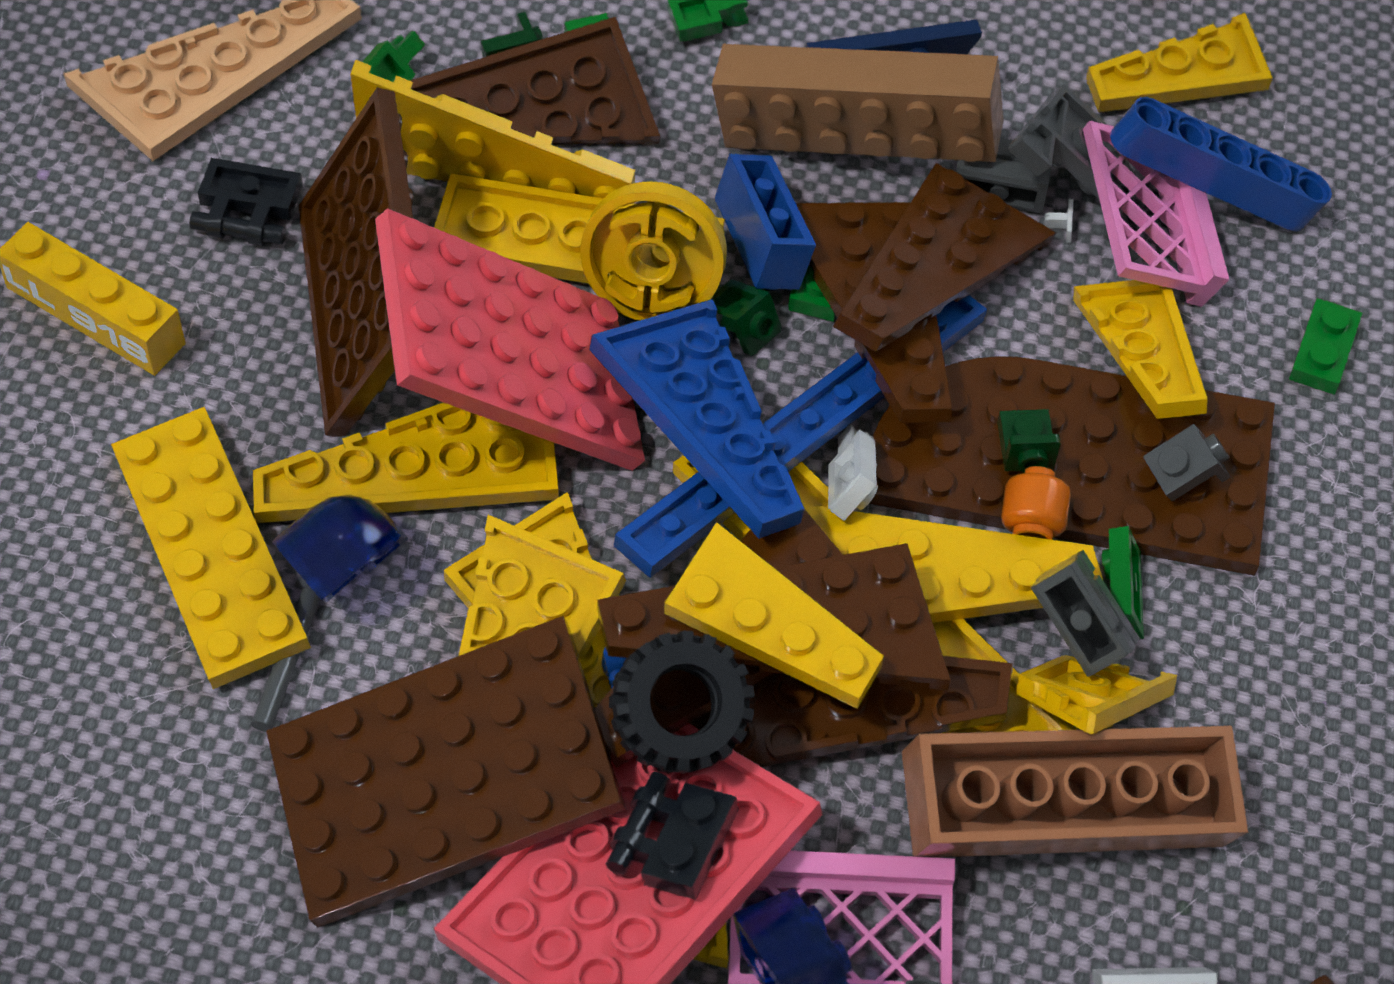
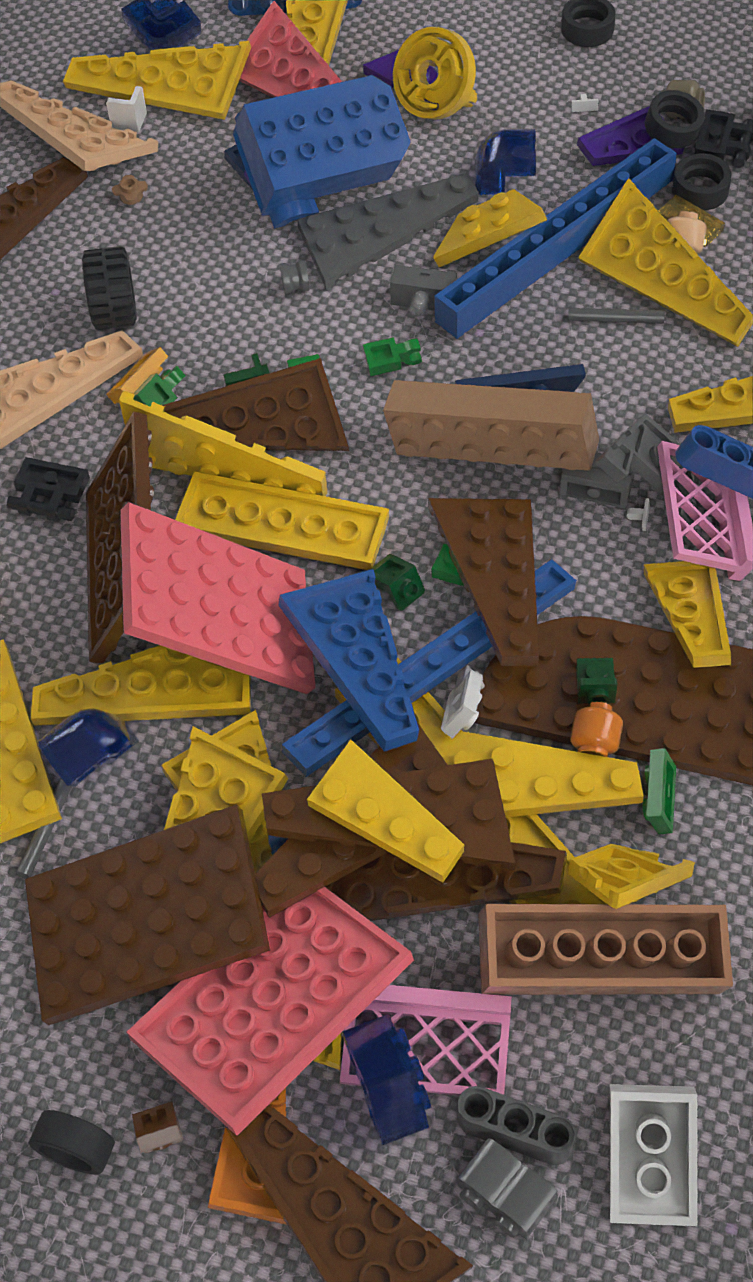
camera: 10 degrees right, 0 degrees up
(357, 44) = (139, 373): none -> light orange plate
(687, 843) = (311, 977): black plate -> none
(693, 246) = (343, 512): yellow piece -> none
(727, 692) = (349, 879): black tyre -> none
(764, 222) = (416, 512): blue brick -> none
(938, 253) = (541, 537): reddish brown wing -> none
(1085, 613) = (624, 815): dark grey brick -> none
(1187, 461) = (714, 700): dark grey bracket -> none

